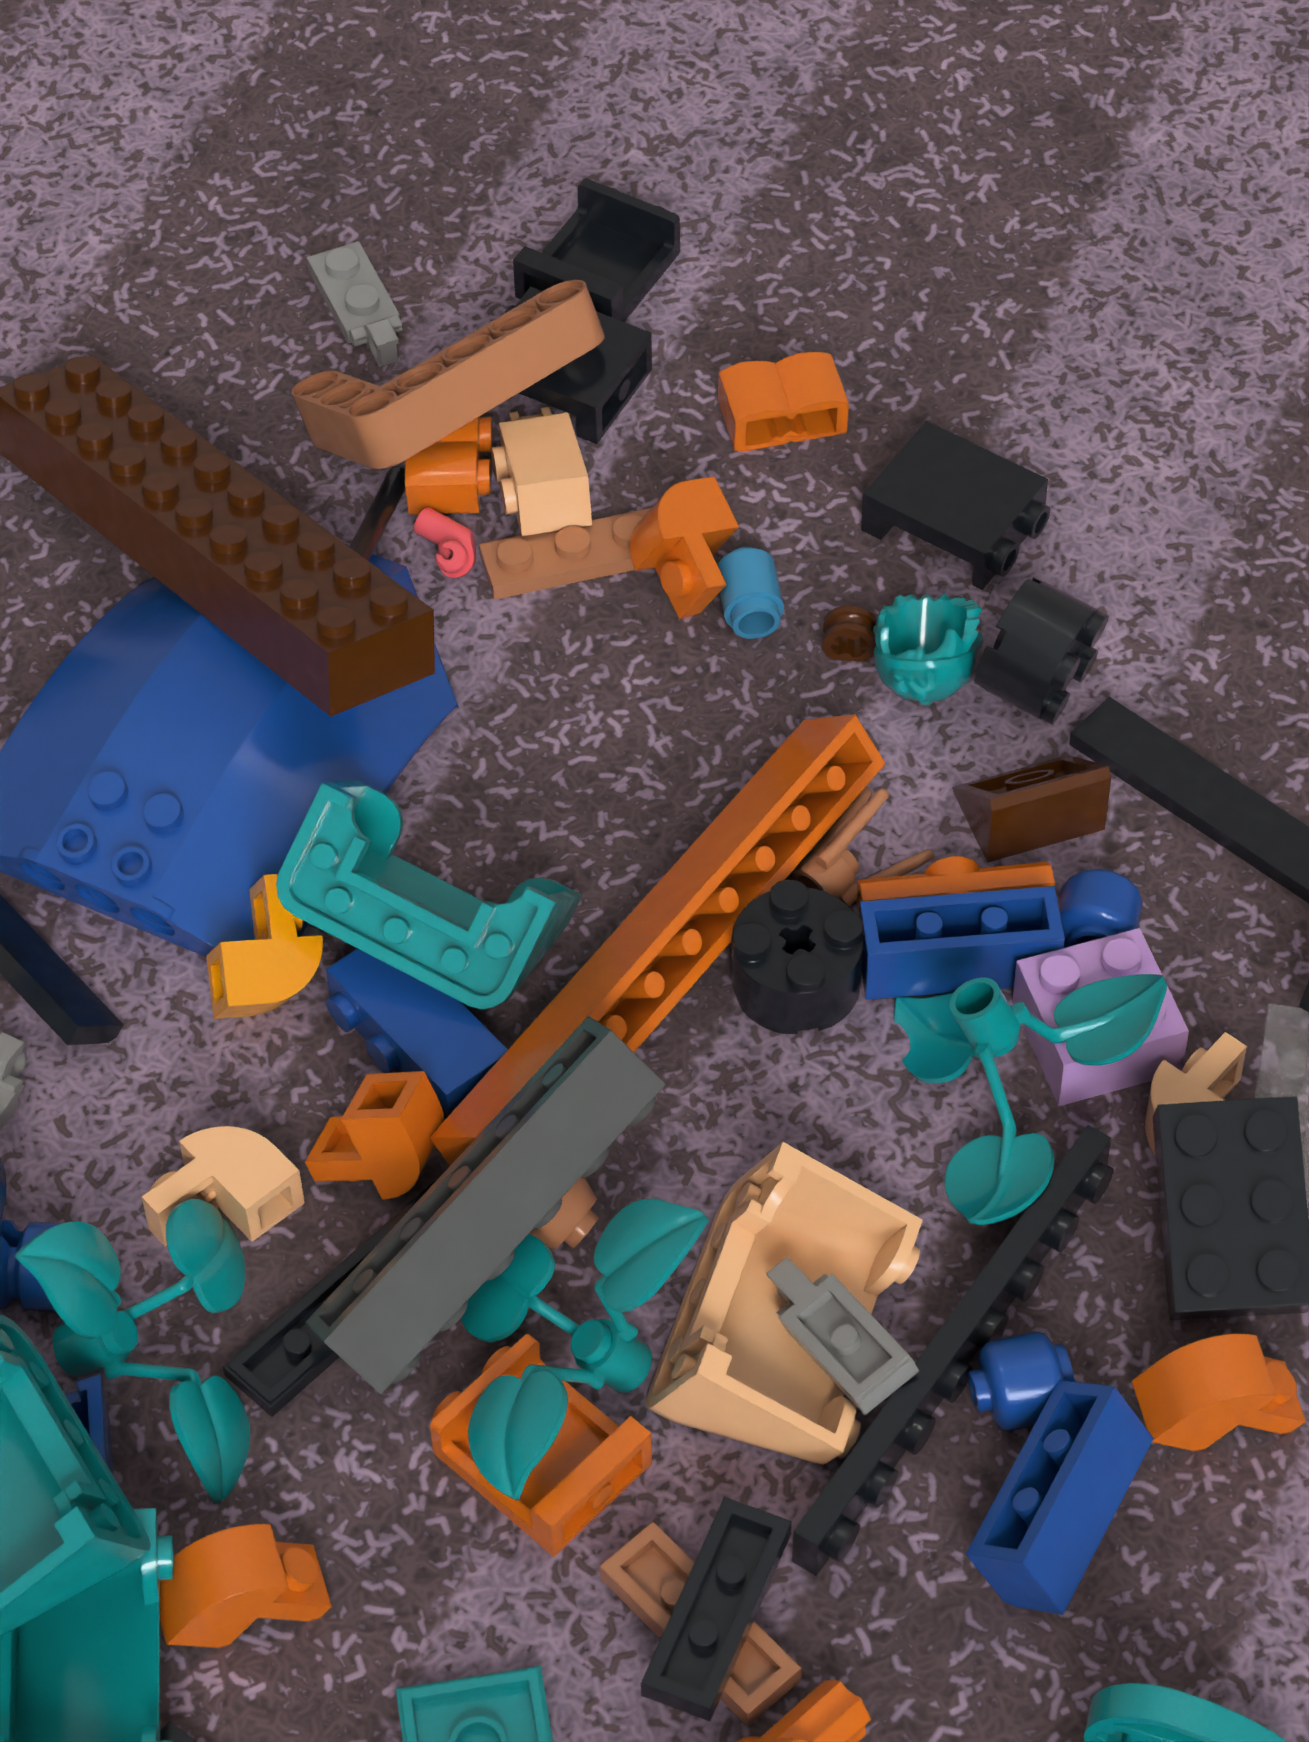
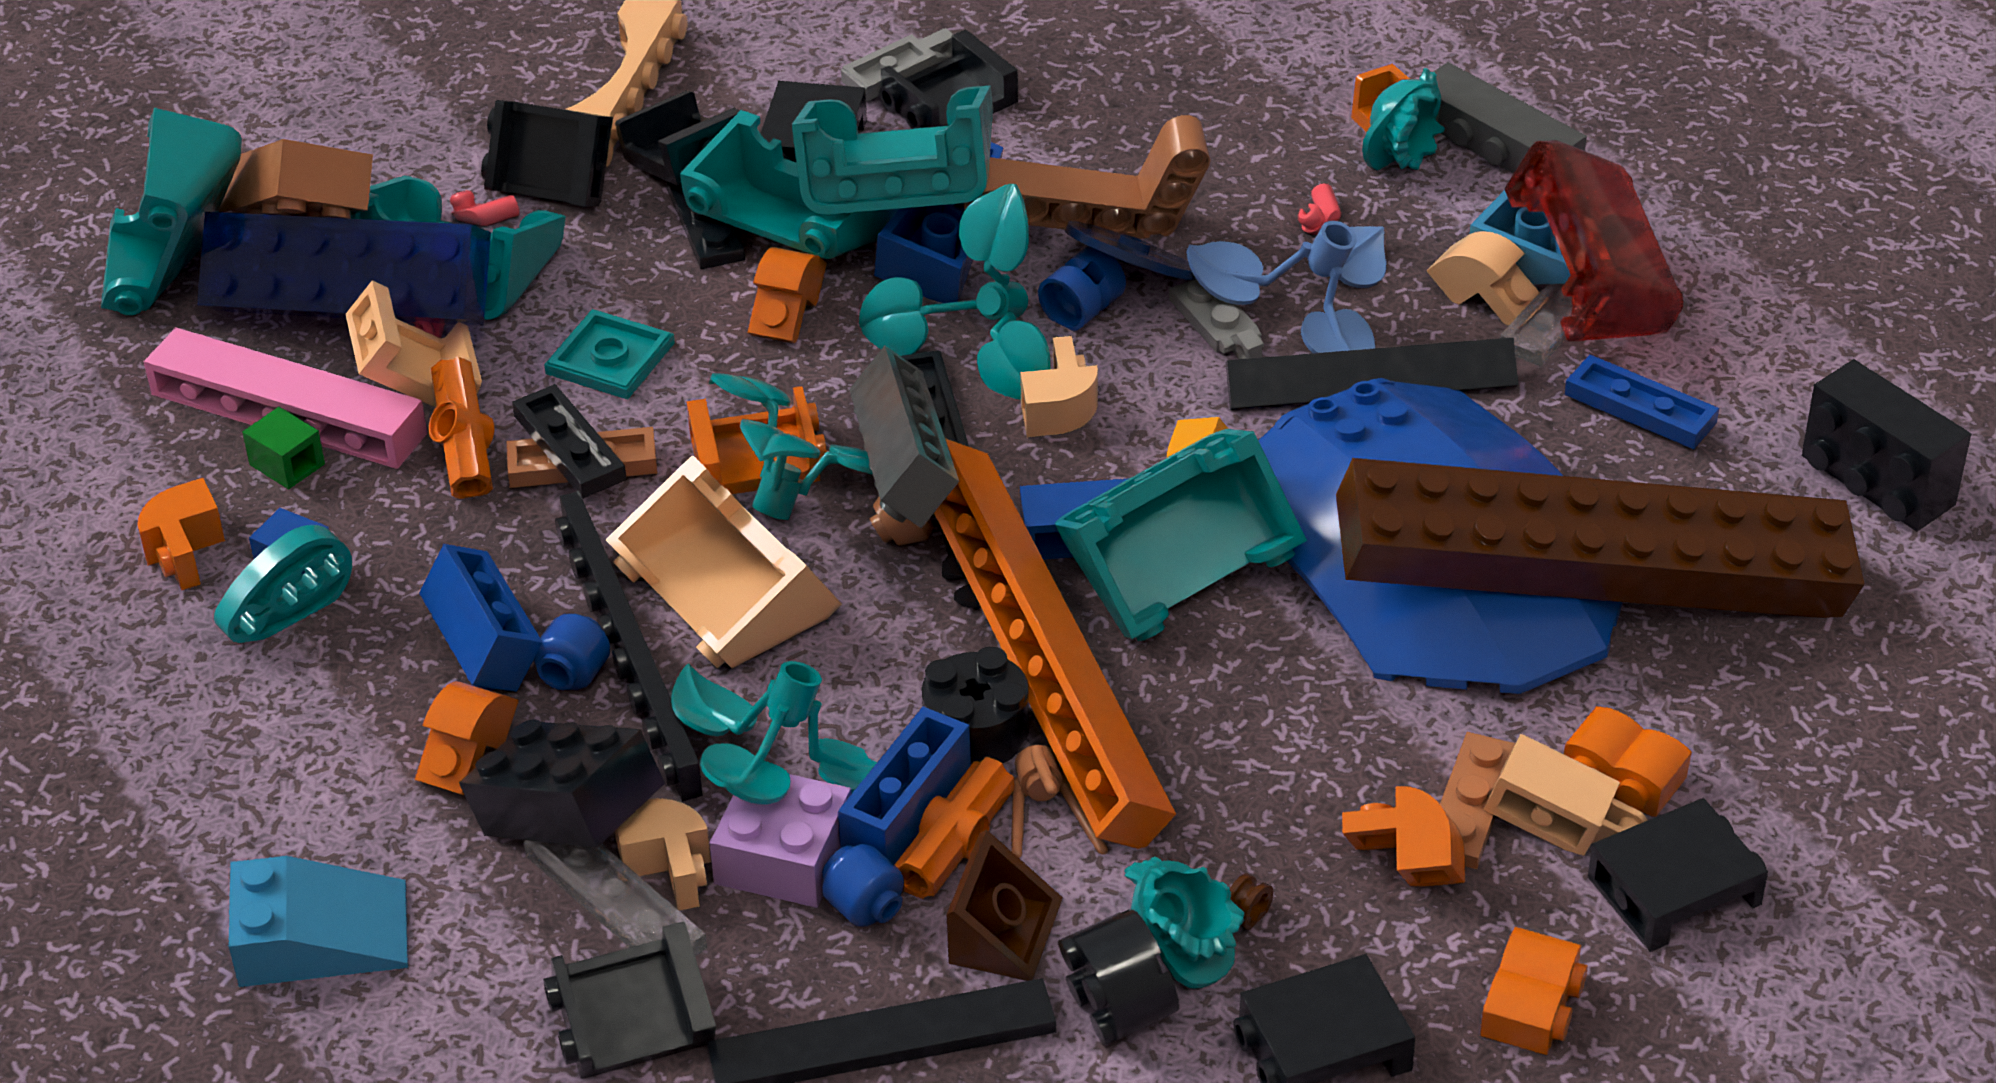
camera: 125 degrees right, 10 degrees down
(357, 300) = (1858, 803): light grey hinge -> none
(379, 513) = (1562, 669): black bar -> none
(380, 1134) = (1020, 447): orange brick -> none
(452, 387) = (1654, 712): nougat beam -> none
(454, 541) = (1517, 722): coral arm -> none
(608, 243) = (1794, 961): black panel -> none
(752, 593) = (1338, 864): dark azure brick -> none
(841, 1336) = (685, 578): light grey hinge -> none

